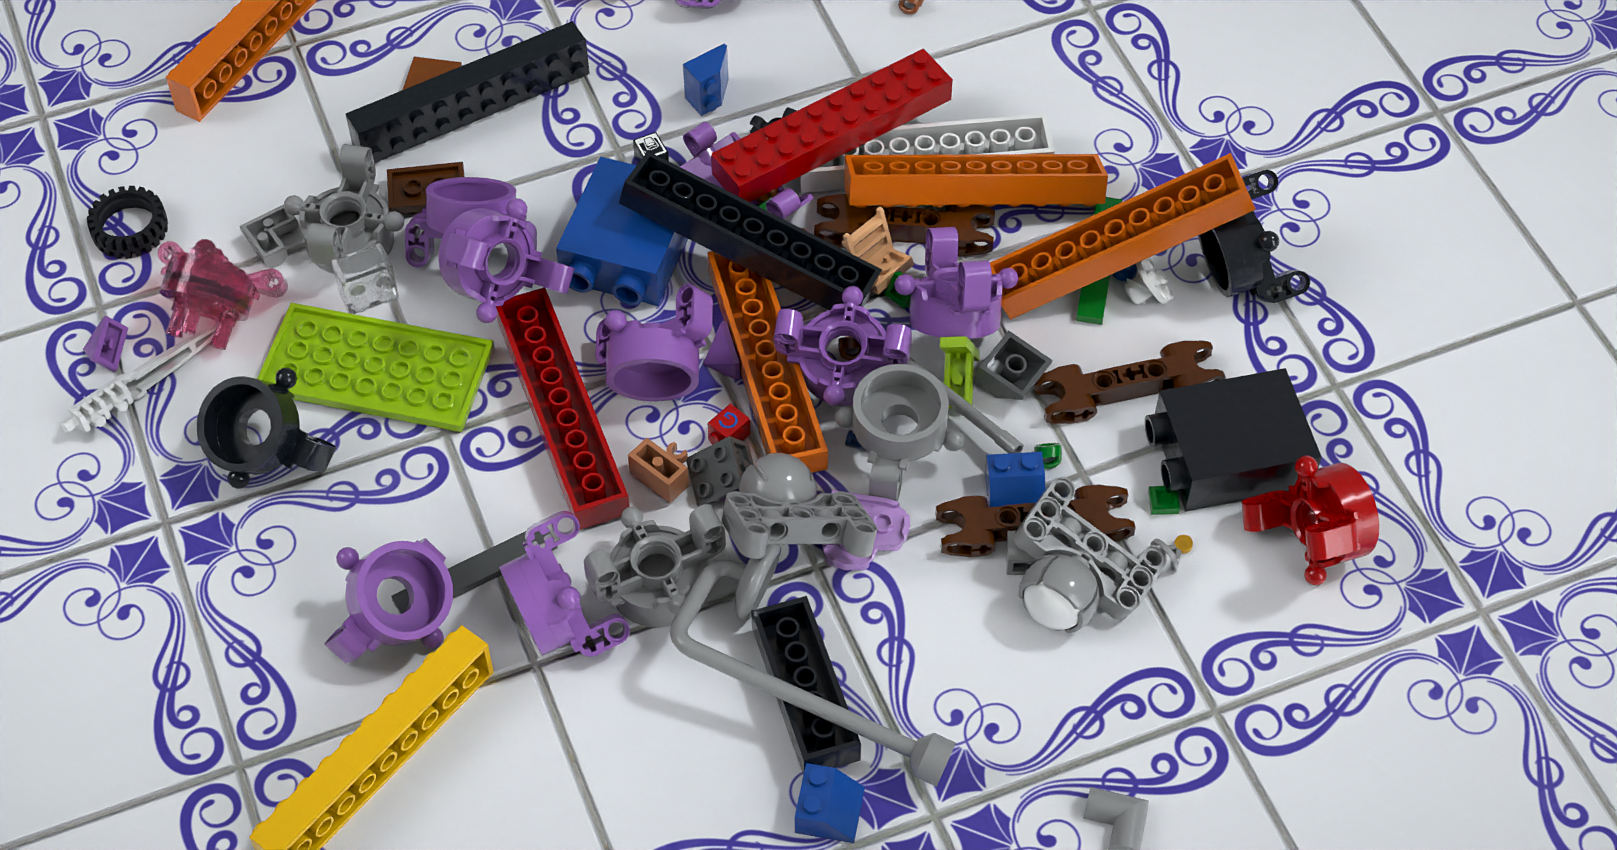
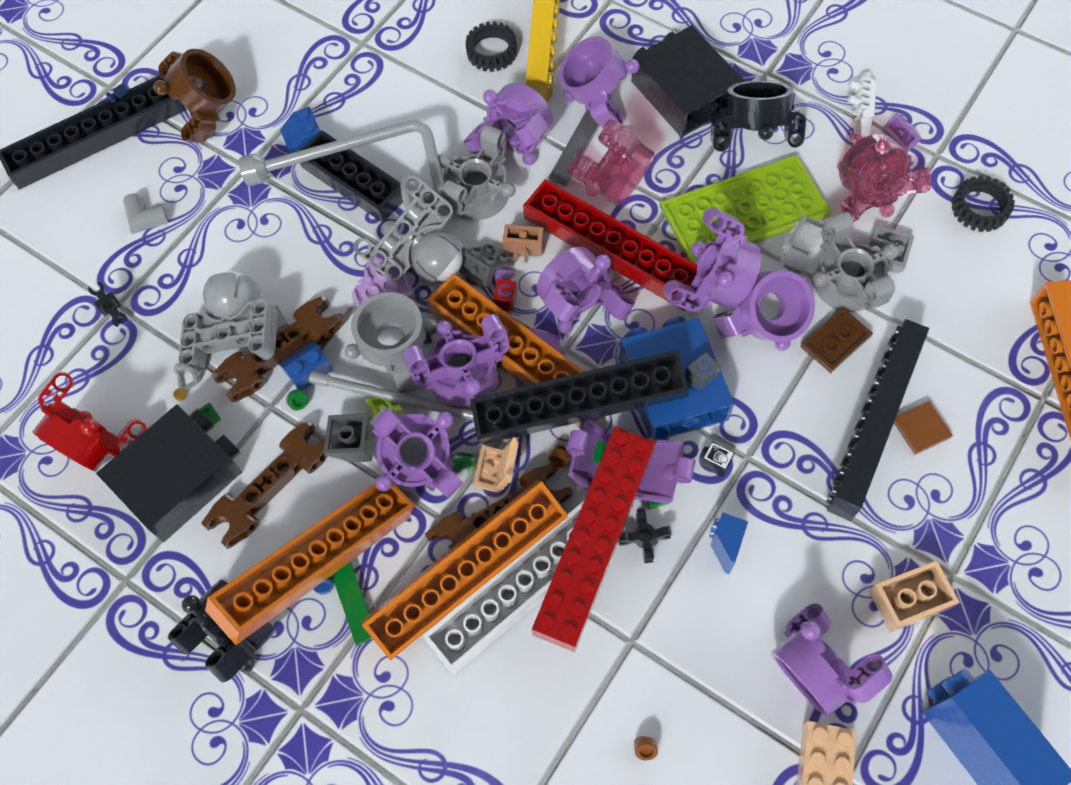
camera: 150 degrees right, 10 degrees up
(280, 548) = (684, 79): none -> black brick
(458, 440) = (619, 168): none -> clear pink piece
(468, 812) = (491, 31): none -> black tyre
(606, 187) = (702, 371): none -> dark grey brick
(1225, 688) = (107, 303): none -> black pin

